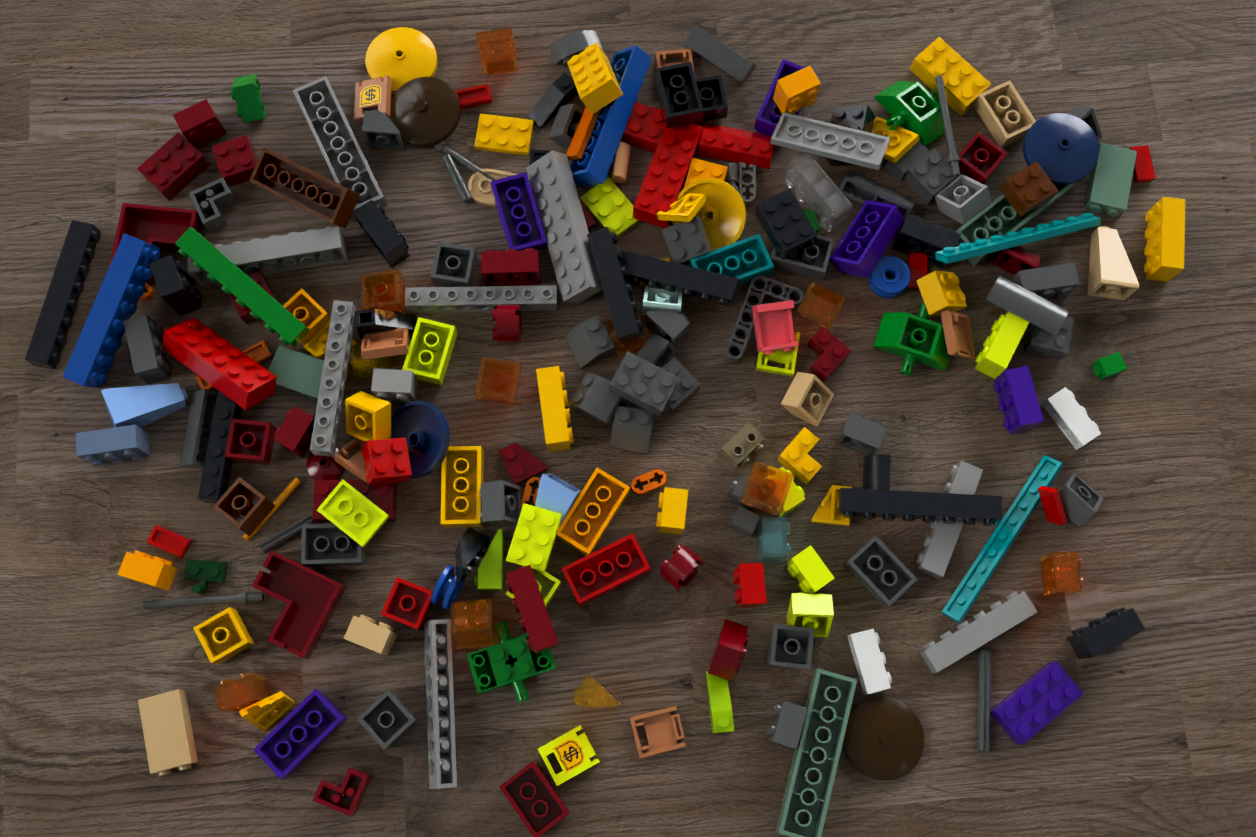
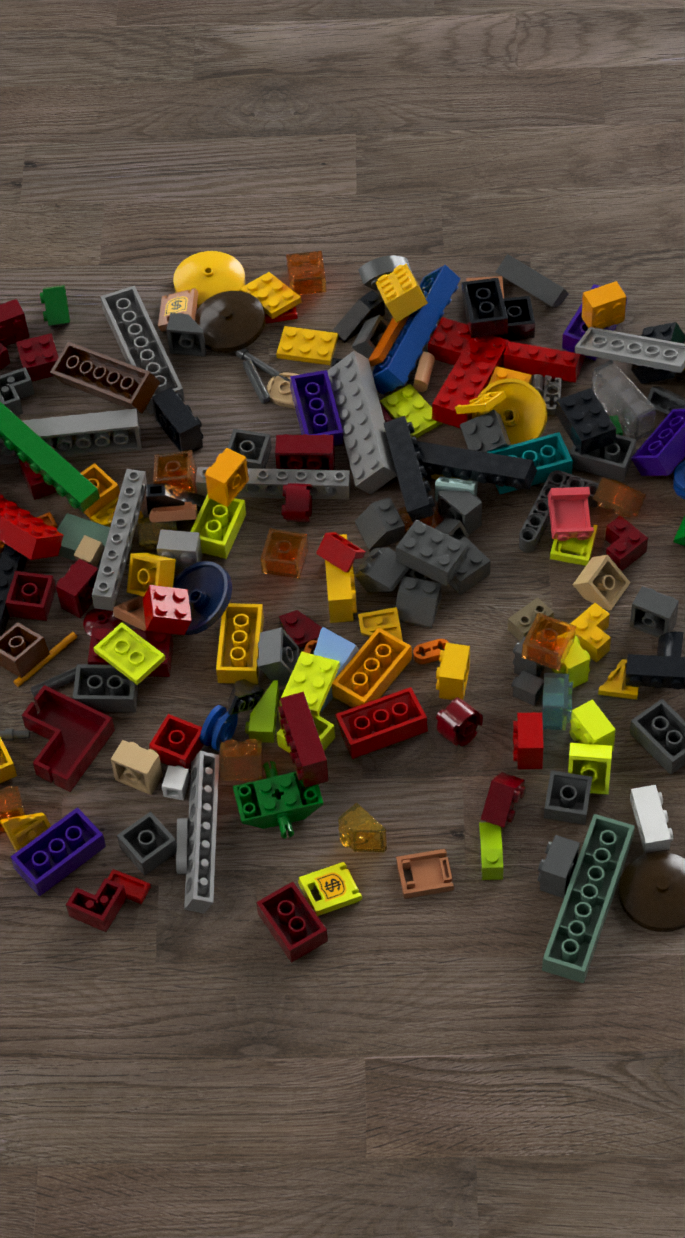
camera: 10 degrees right, 20 degrees down
(304, 394) = (89, 550): none -> tan brick
(372, 762) = (135, 888): none -> red tile
(411, 645) = (175, 782): none -> white brick
(421, 716) = (181, 850): none -> light grey beam
(434, 306) = (226, 477): none -> light orange brick
(464, 77) = (272, 294): none -> yellow plate
(554, 388) = (339, 551): none -> red panel
(599, 455) = (385, 619): none -> yellow wing

